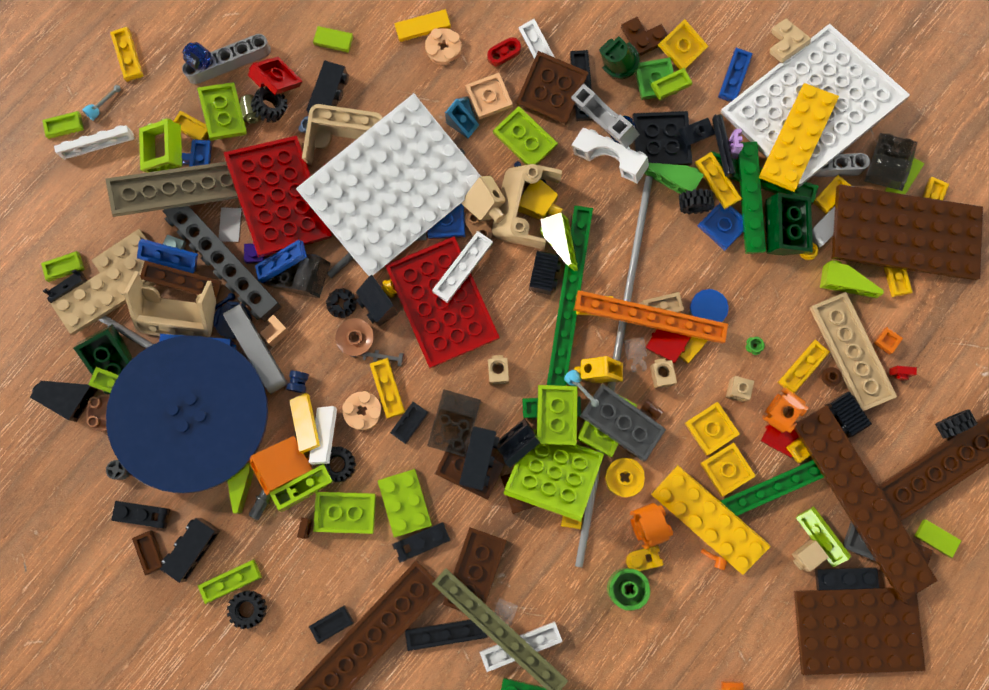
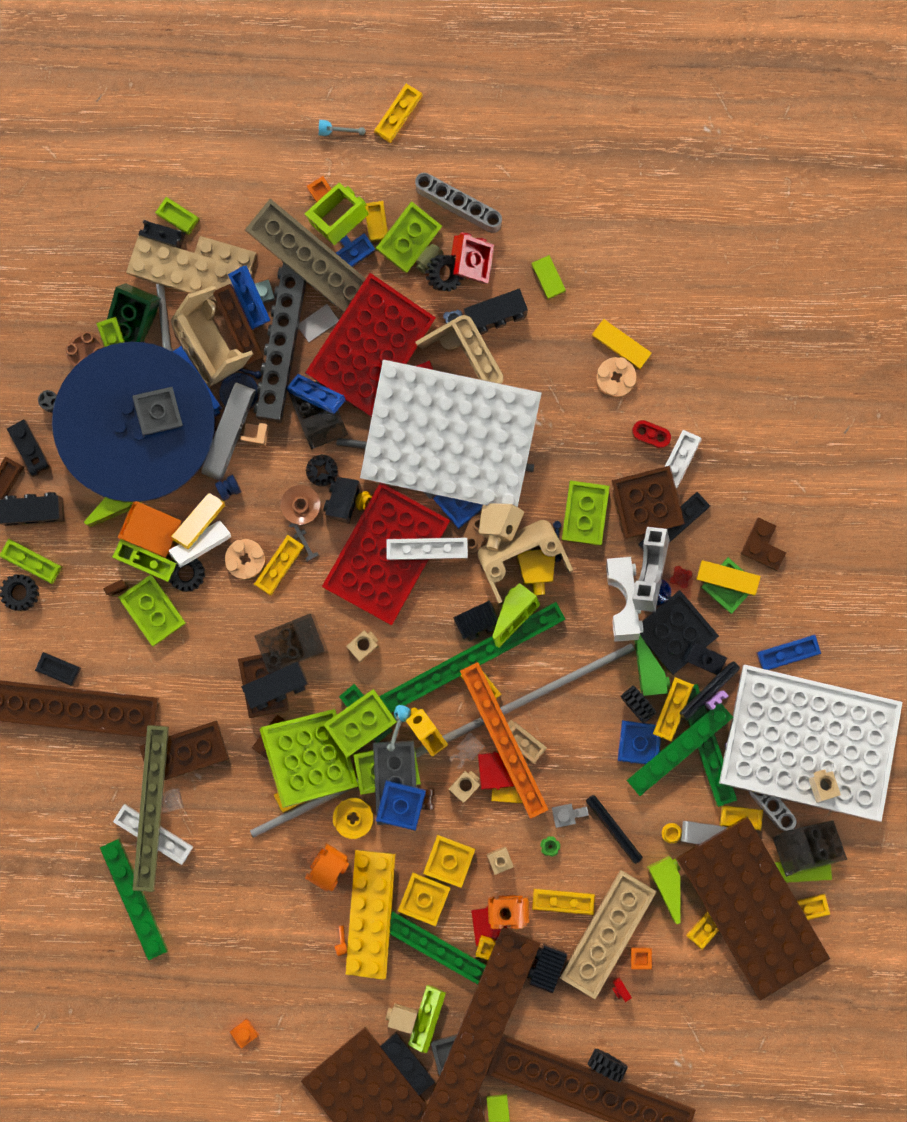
camera: 55 degrees right, 5 degrees up
(63, 125) = (295, 113): lime tile -> none
(63, 398) = (71, 309): black slope -> none
(94, 142) = (294, 149): white plate -> none
(131, 148) = (318, 188): none -> orange plate
(193, 386) = (157, 411): none -> dark grey plate
(196, 56) = (436, 180): clear blue head -> none
(250, 254) = (304, 361): dark purple plate -> none
(260, 505) = (106, 537): dark grey axle -> none
(404, 503) = (196, 652): lime plate -> none
(409, 422) = (264, 605): black plate -> none
(422, 542) = (176, 691): black plate -> none
(443, 634) = (115, 763): black tile -> none
(461, 117) = (563, 444): dark azure slope -> none
(489, 96) = (599, 452): light nougat plate -> none
(517, 443) = (312, 708): black slope -> none
(619, 58) = (722, 542): dark green container -> none
(626, 103) = (687, 574): none -> clear red plate
(637, 559) = (292, 878): yellow plate -> none
(640, 589) = (254, 896): bright green brick -> none
(644, 431) = (400, 805): none -> blue tile
(650, 73) = (728, 578): none -> yellow tile
(671, 84) = (732, 603): lime tile -> none
(683, 45) = (778, 587): yellow plate -> none
(709, 305) = (555, 783): blue tile -> none
(739, 316) = (565, 814): none -> light grey plate
(775, 289) = (614, 829): none -> black axle
(788, 224) = (679, 799): dark green slope -> none
(791, 40) = (858, 681): tan plate -> none
(798, 137) = (765, 751): yellow plate -> none
(826, 376) = (572, 924): reddish brown plate -> none
(860, 106) = (819, 793): none -> tan brick

